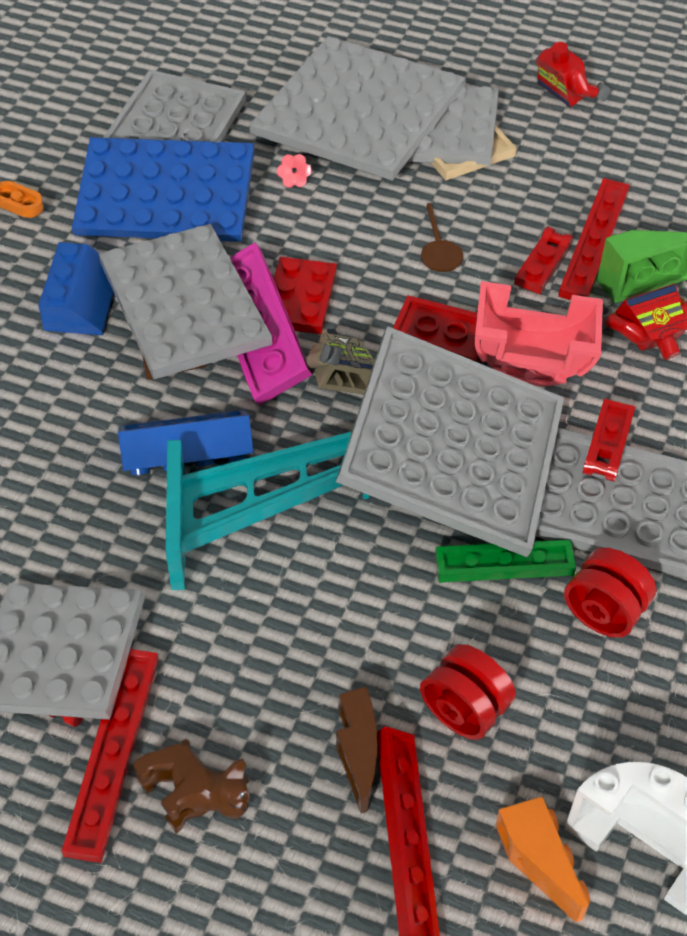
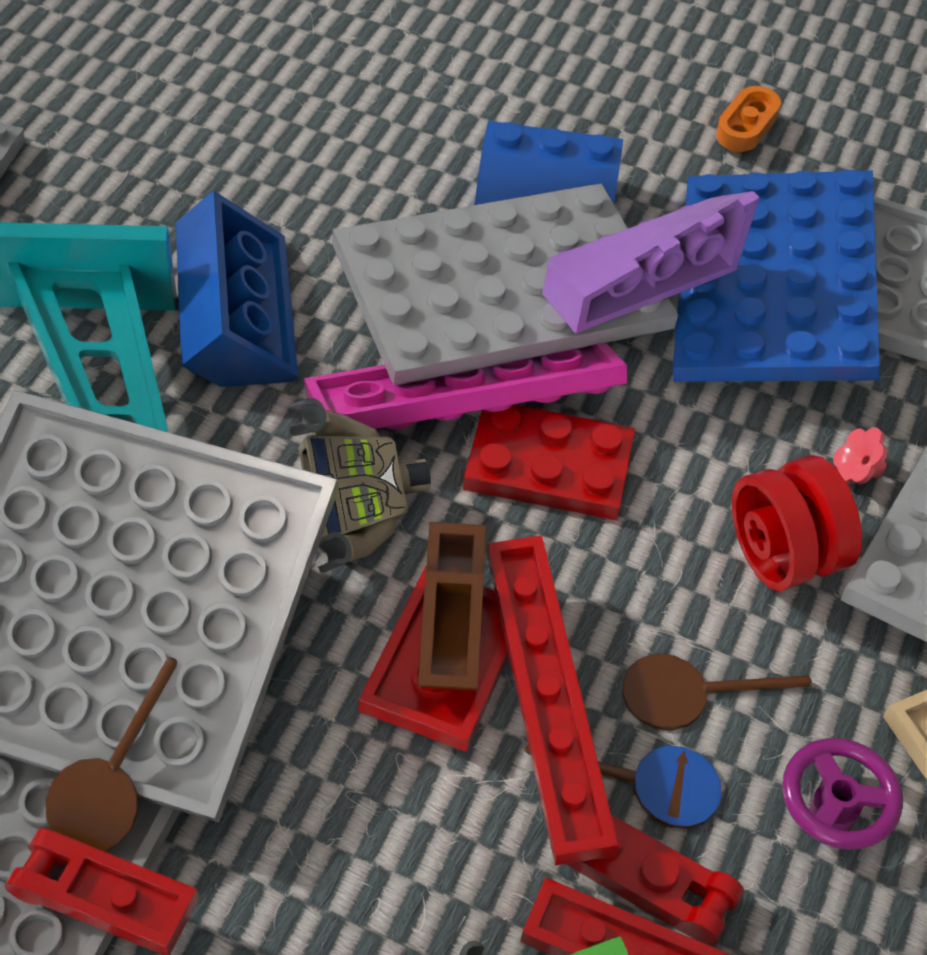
camera: 90 degrees right, 0 degrees up
(188, 216) = (649, 261): none -> medium lavender wedge
(353, 187) = (796, 522): none -> red wheel
(422, 315) = (452, 606): none -> reddish brown slope
(465, 279) = (551, 703): none -> red plate
(494, 253) = (672, 785): none -> blue piece
(496, 194) = (830, 816): none -> magenta piece
(537, 344) = (390, 778): coral cylinder -> none
(560, 443) = (95, 796): none -> reddish brown piece

